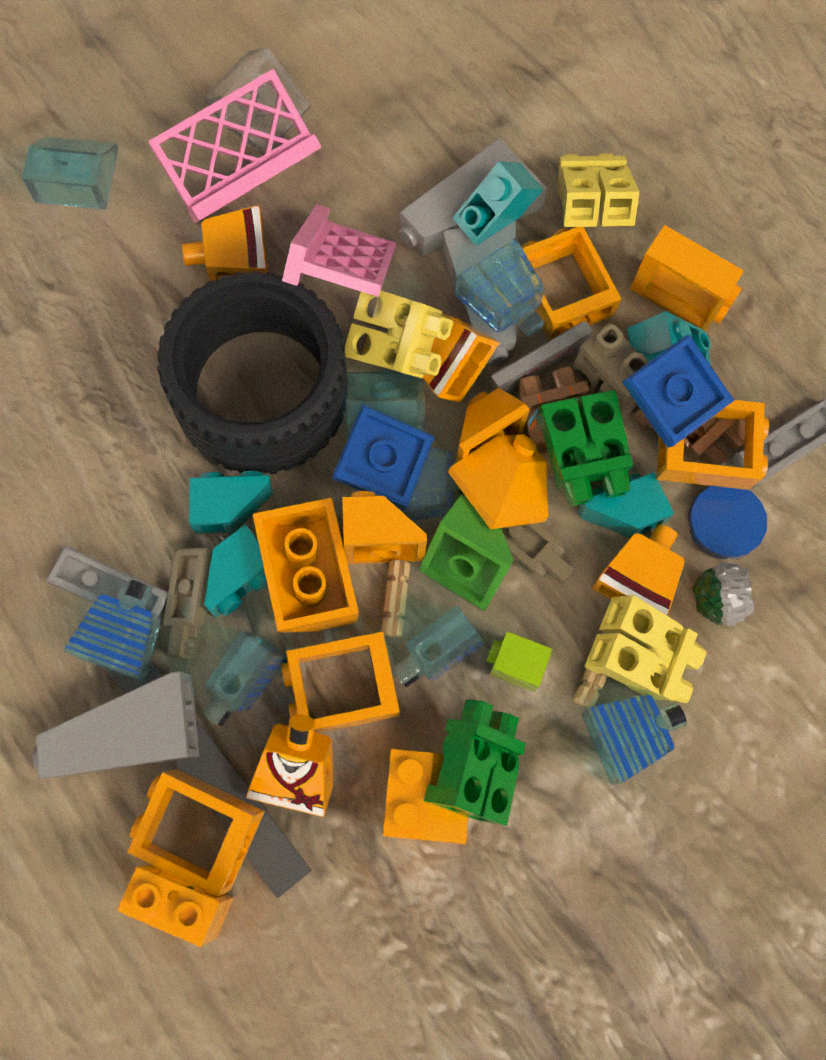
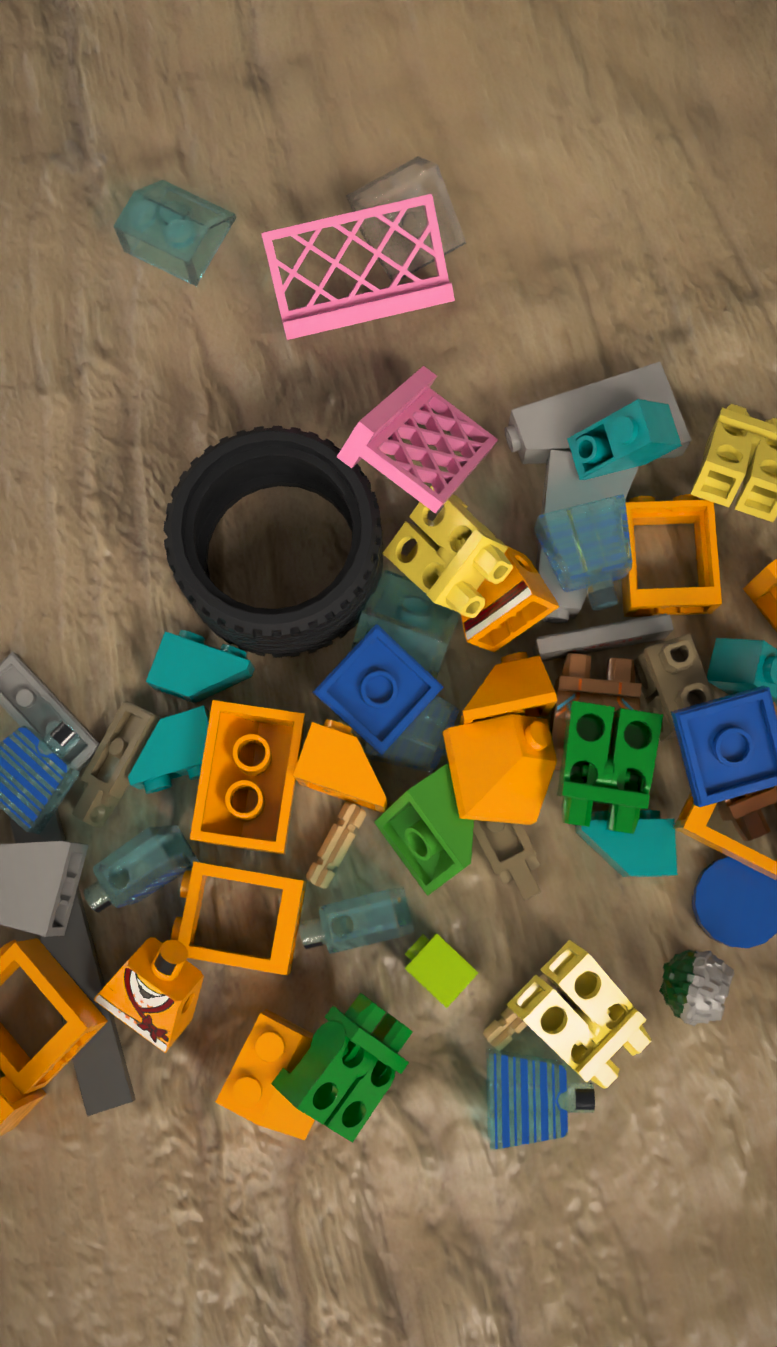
camera: 30 degrees right, 5 degrees up
(230, 244) = (312, 383): light orange torso -> none
(645, 570) = (618, 925): light orange torso -> none

